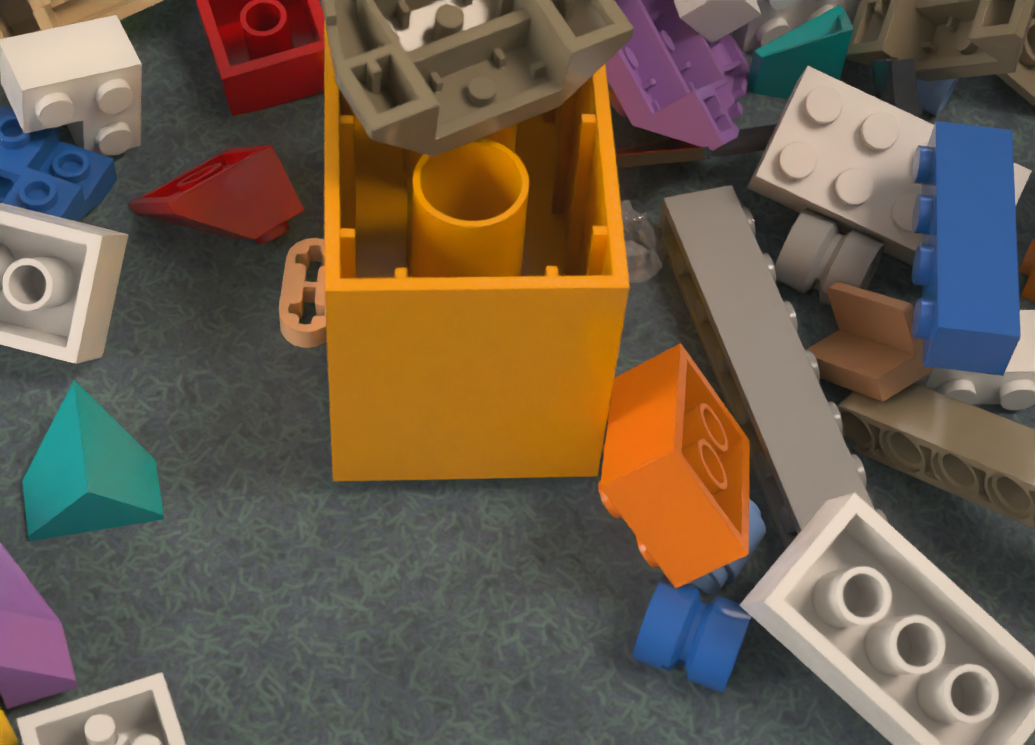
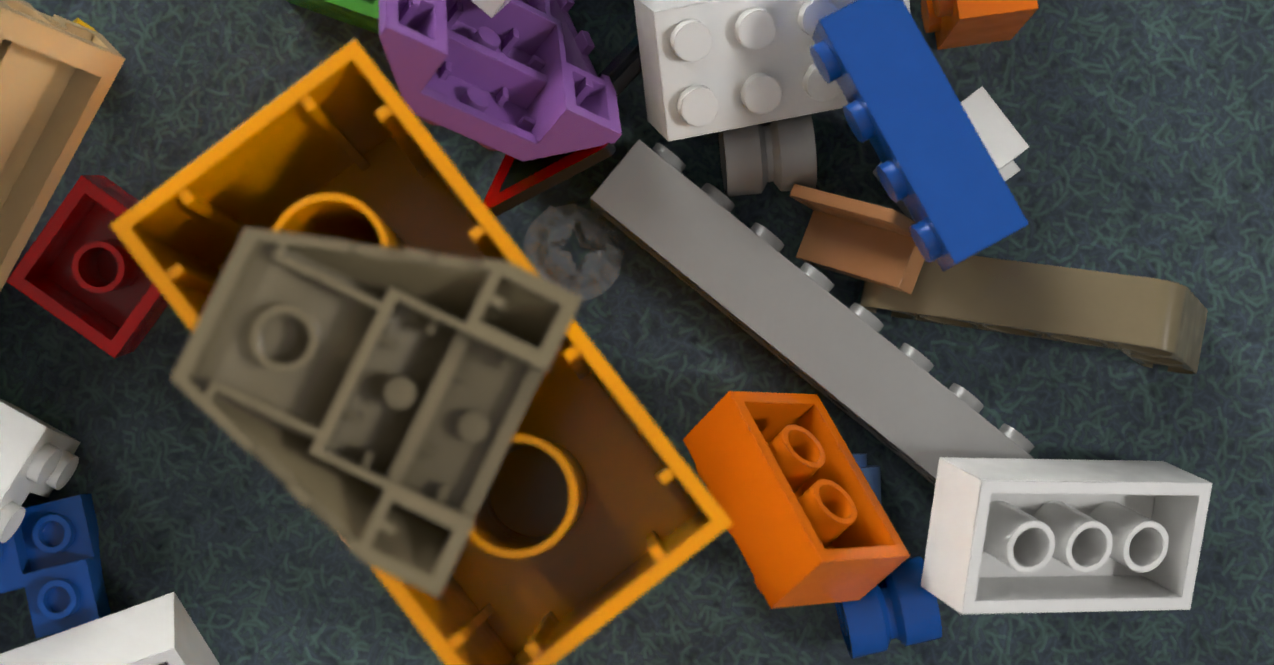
camera: 30 degrees left, 30 degrees up
(230, 195) = (192, 474): red slope -> none

